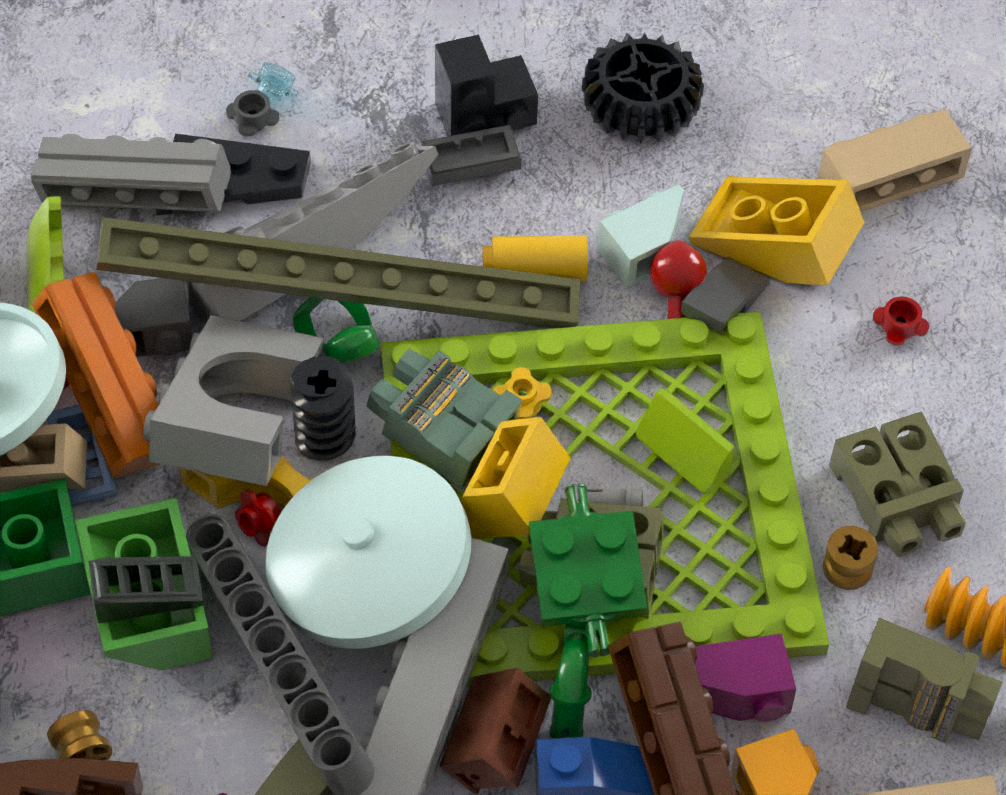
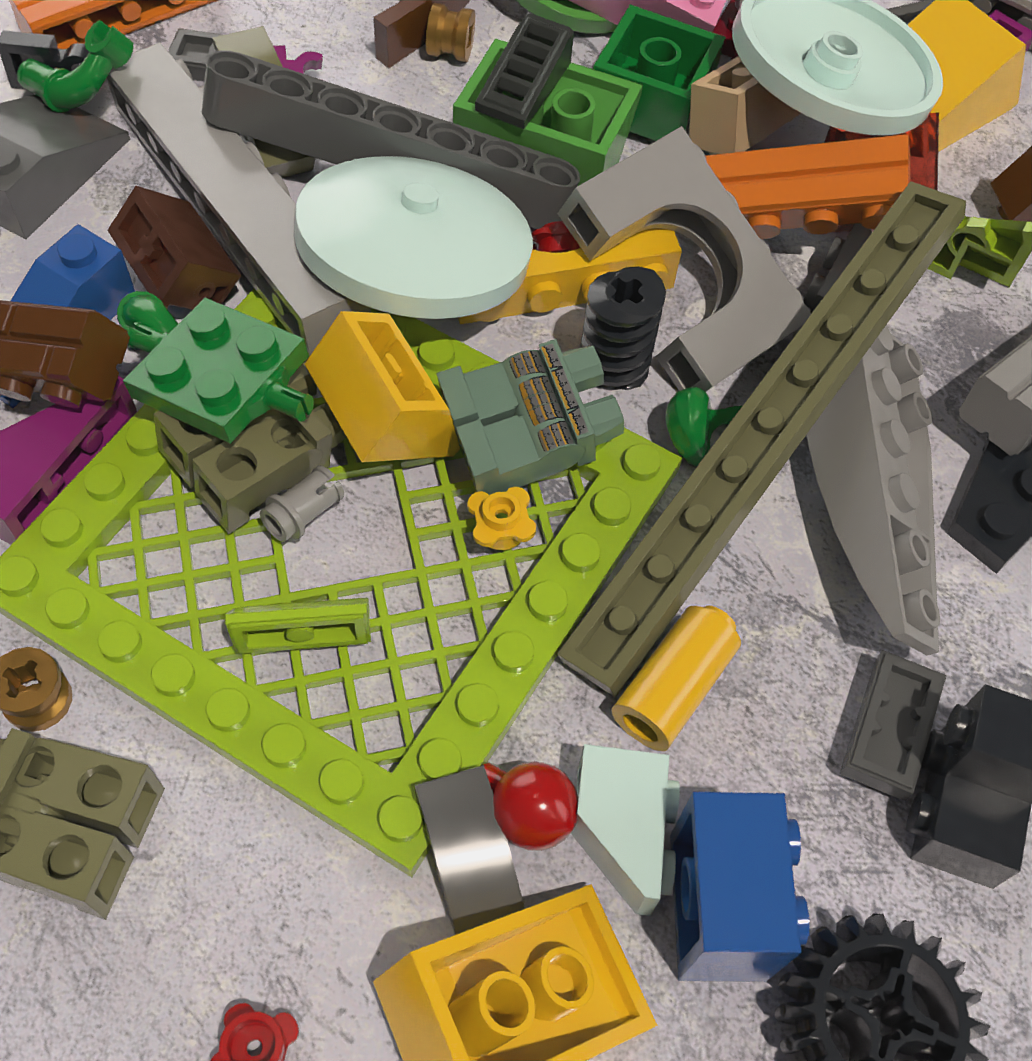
camera: 125 degrees right, 5 degrees up
(645, 153) = (736, 887): none -> blue brick

